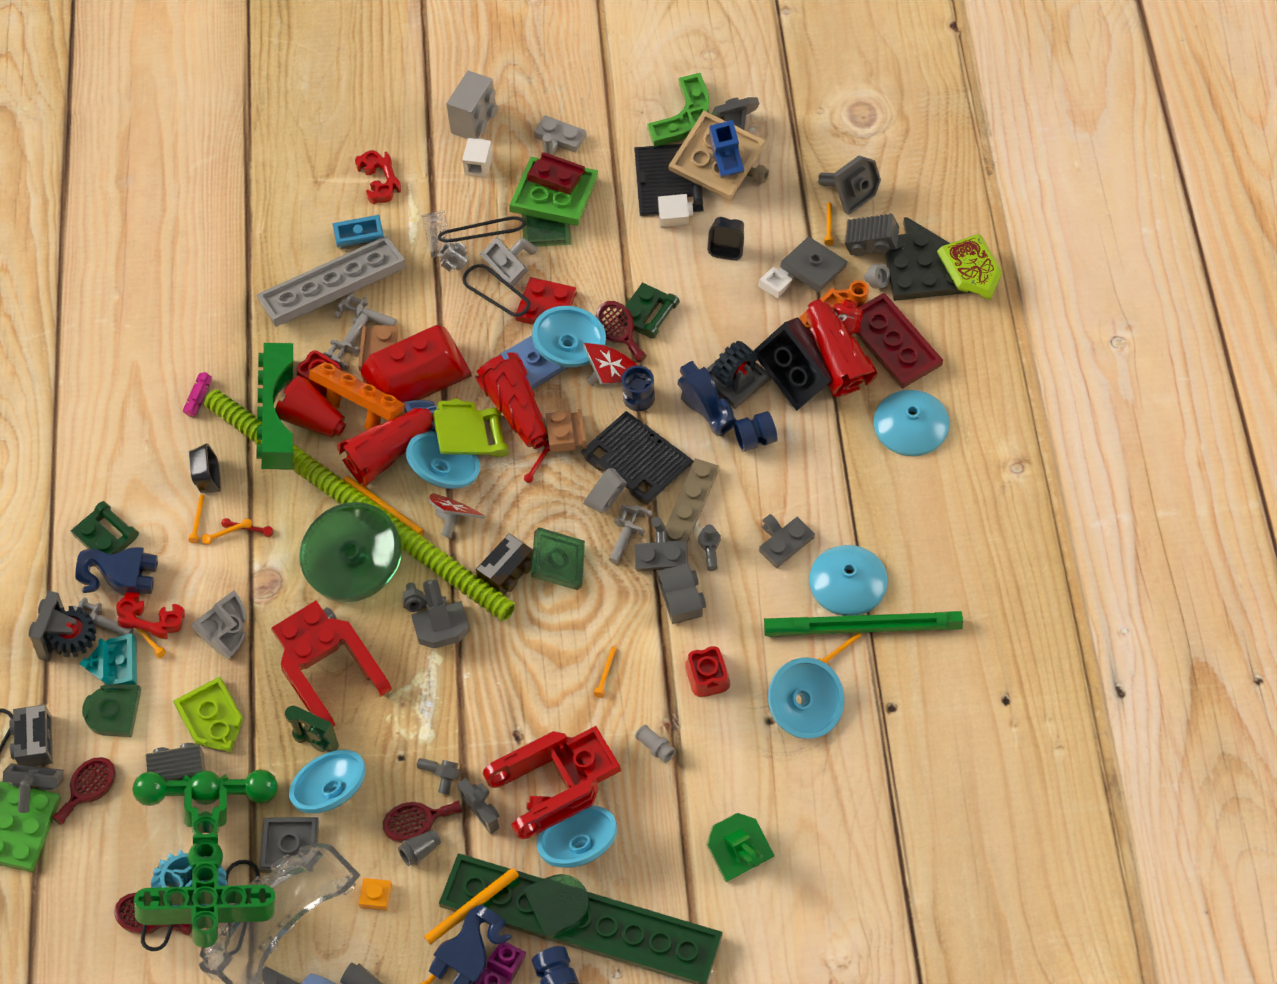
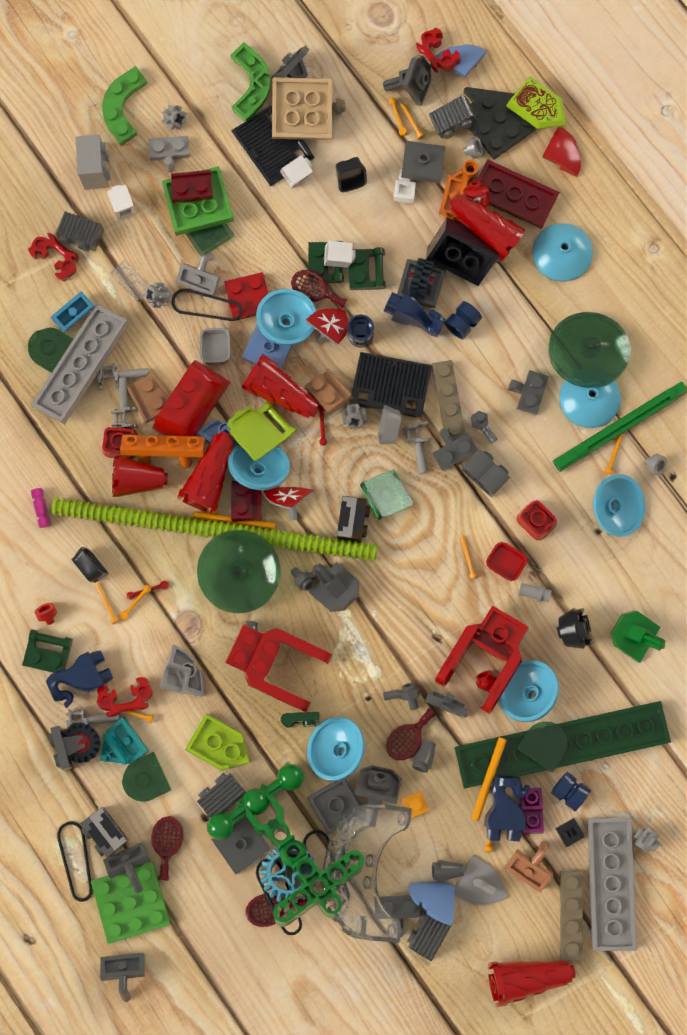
camera: 30 degrees left, 20 degrees up
(130, 493) = (46, 613): none -> red tile
(160, 830) = (242, 846): none -> dark grey plate
(276, 439) = (134, 520): green arch -> none
(311, 251) = (48, 347): none -> clear green tile
(348, 841) = (378, 785): none -> dark grey piece
(406, 493) = (245, 503): none -> dark red plate
(417, 164) = (79, 231): none -> dark grey brick
(478, 331) = (215, 345): none -> light grey piece
(482, 224) = (170, 267): black piece -> none
(536, 68) = (114, 101): none -> bright green plate
(575, 466) = (354, 416): none -> light grey gear
(586, 112) = (174, 117): none -> light grey gear
(643, 693) = (506, 561): none -> red piece
(663, 303) = (339, 254): none -> white brick
(673, 800) = (574, 629): none -> black cone
(681, 332) = (359, 270): none -> dark green plate
(725, 148) = (310, 102): blue brick -> none
(812, 228) = (402, 131): none -> light orange hinge
(876, 528) = (589, 349): none -> clear green dish
(879, 682) = (656, 464): none -> light grey tile
(900, 158) = (433, 39): none -> red helmet
(919, 190) = (470, 58): none -> medium blue brick
(974, 325) = (564, 152): none -> red brick

